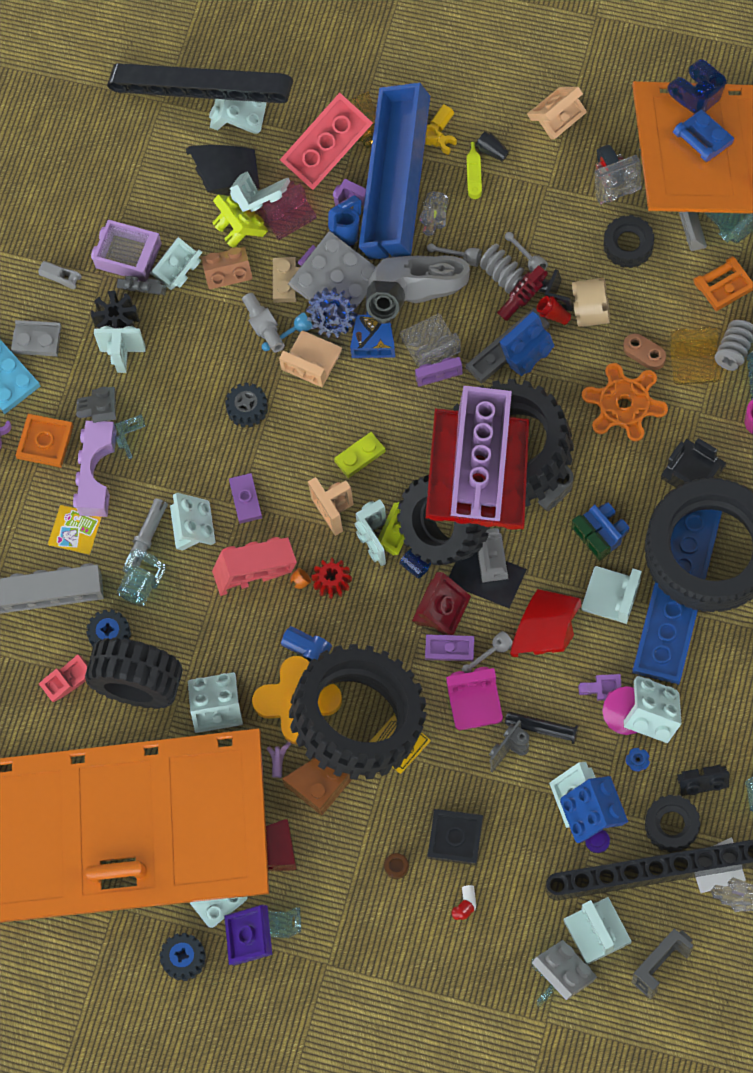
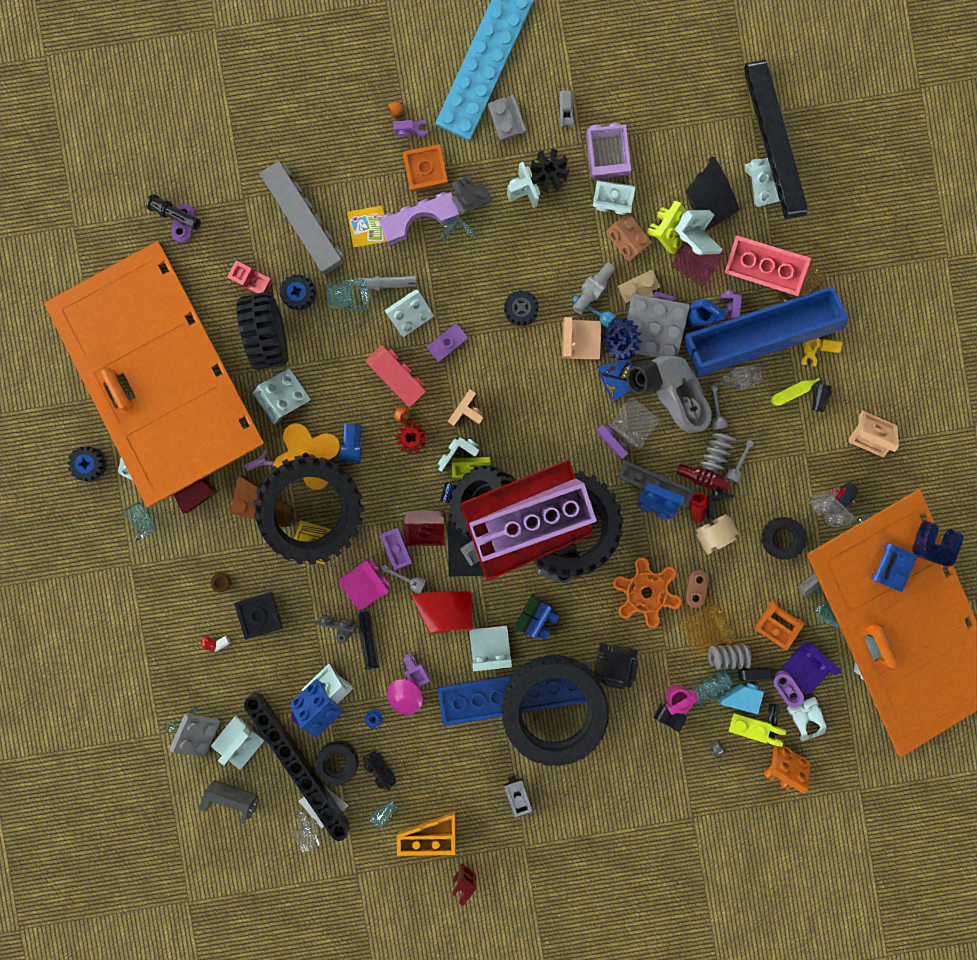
camera: 60 degrees right, 20 degrees up
(132, 284) = (580, 172): dark grey hinge -> none
(248, 935) = (120, 503): dark purple tile -> none
(359, 455) = (519, 412): neon yellow plate -> none
(655, 710) = (414, 719): light aqua bracket -> none

